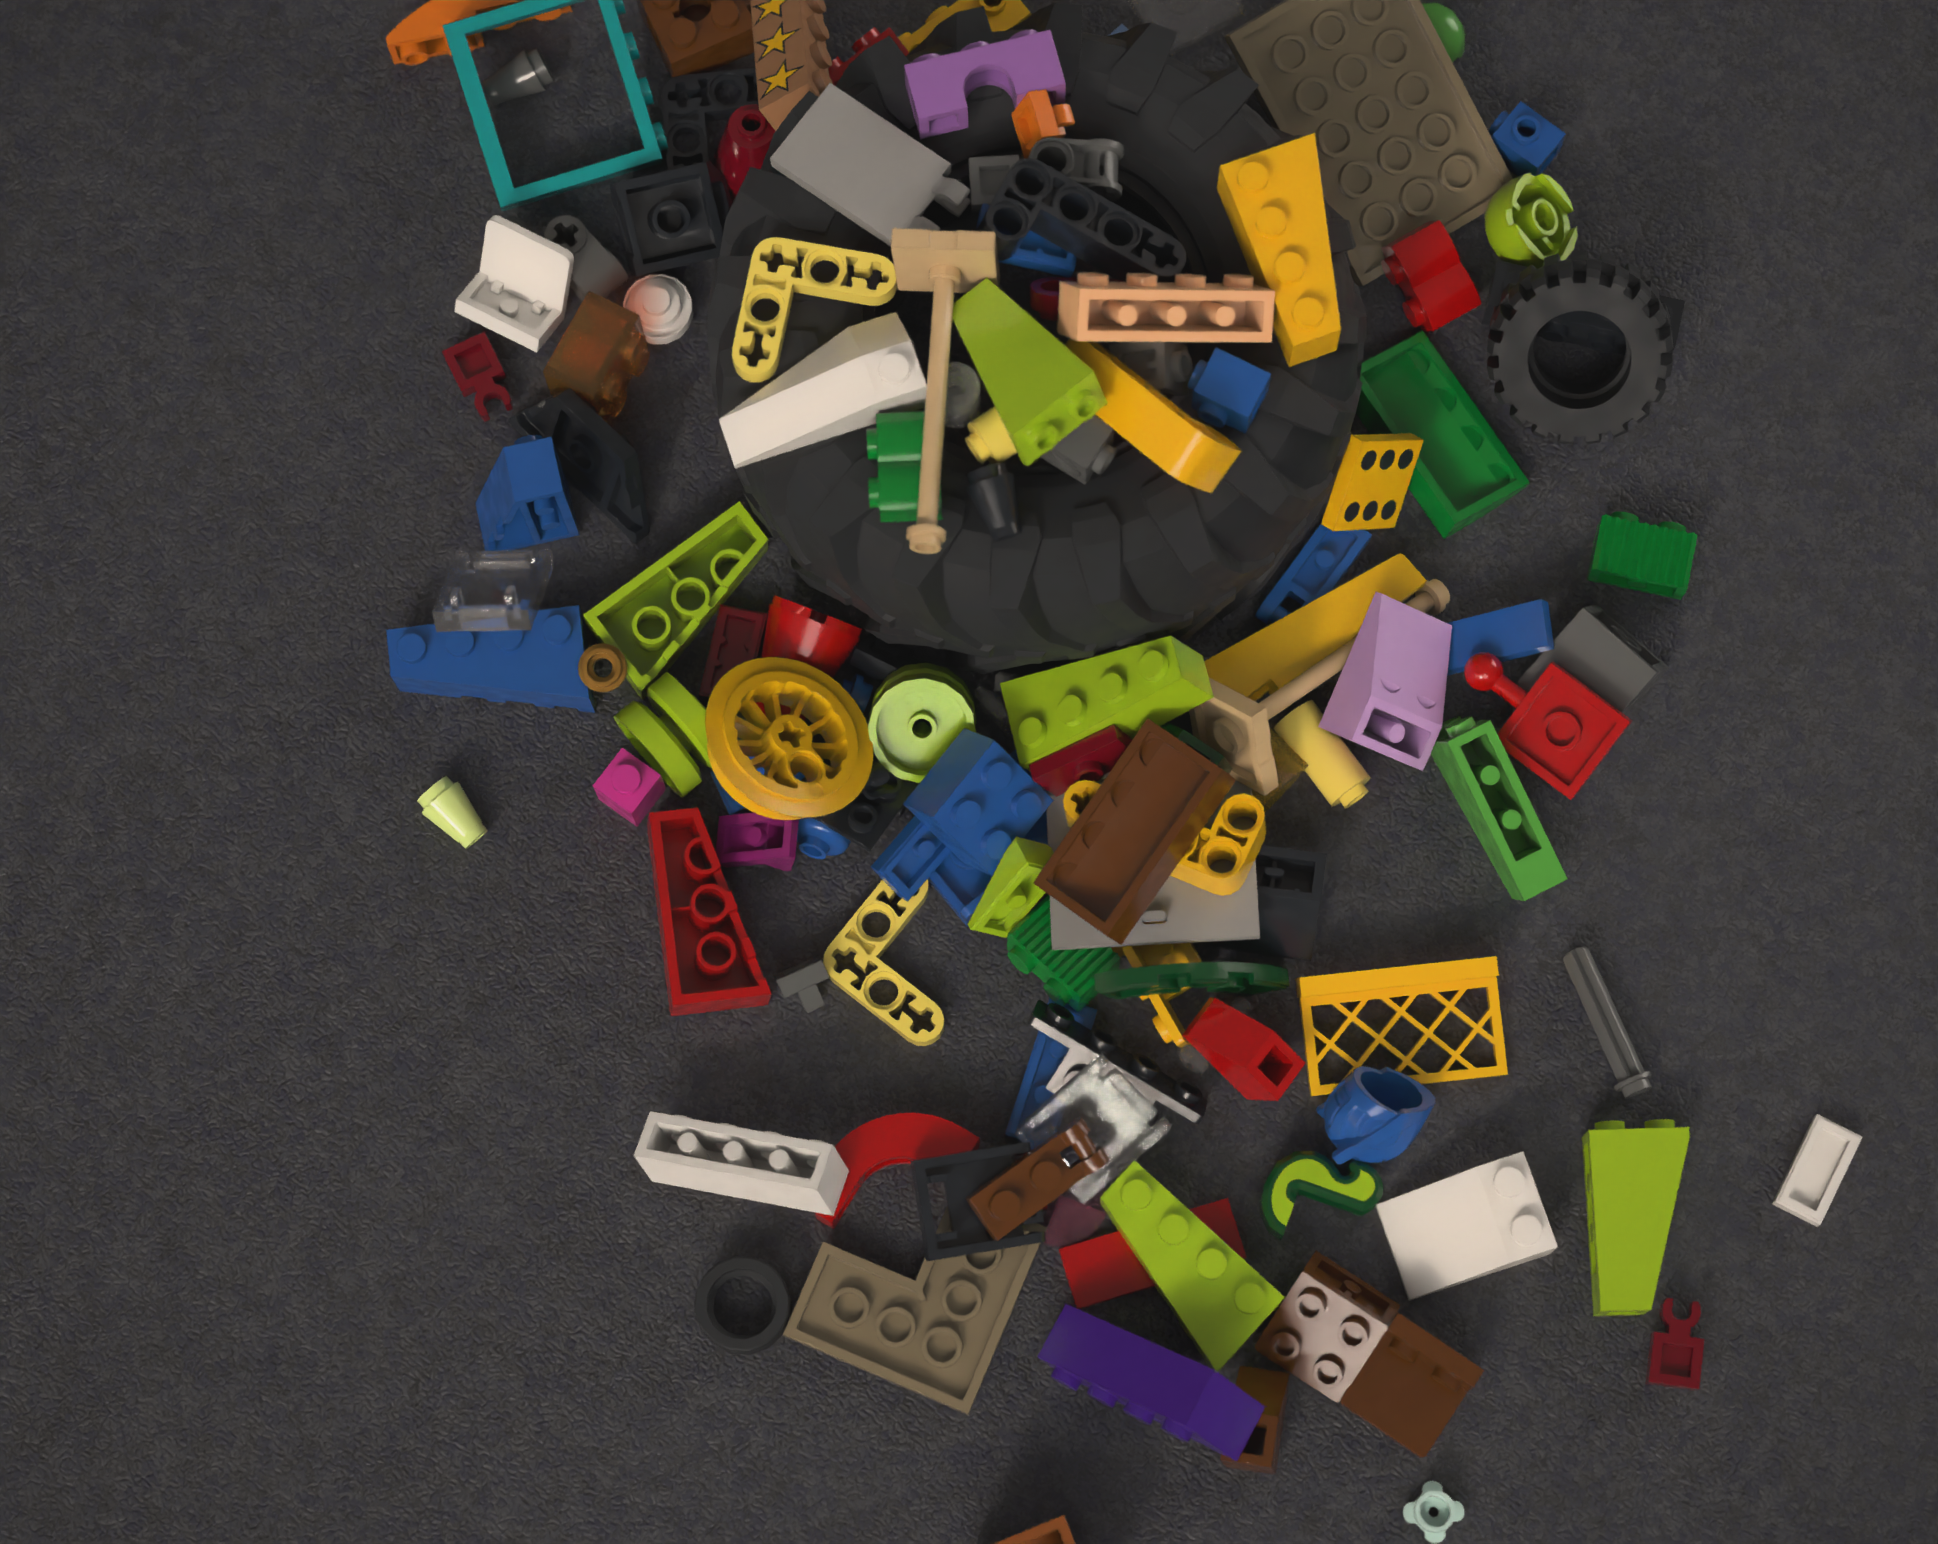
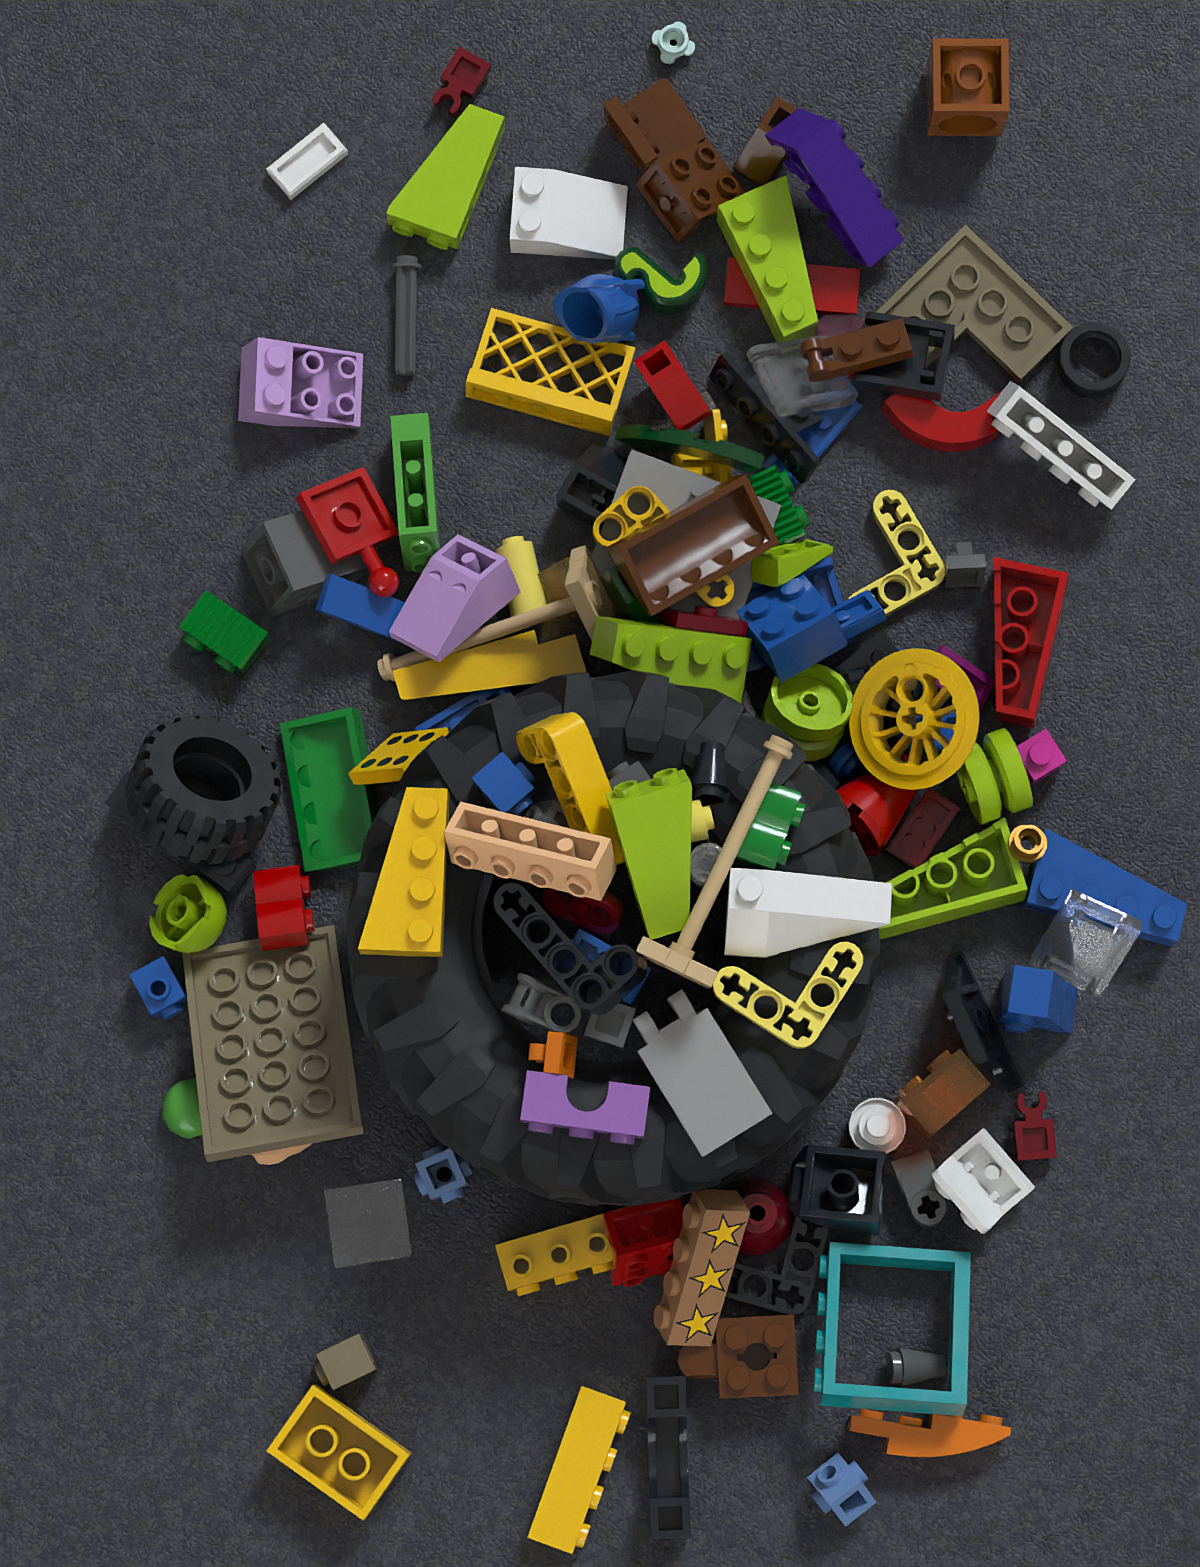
camera: 160 degrees left, 5 degrees up
(452, 812) = (1173, 794): yellowish green cone -> none
(1691, 882) = (299, 385): none -> lavender slope

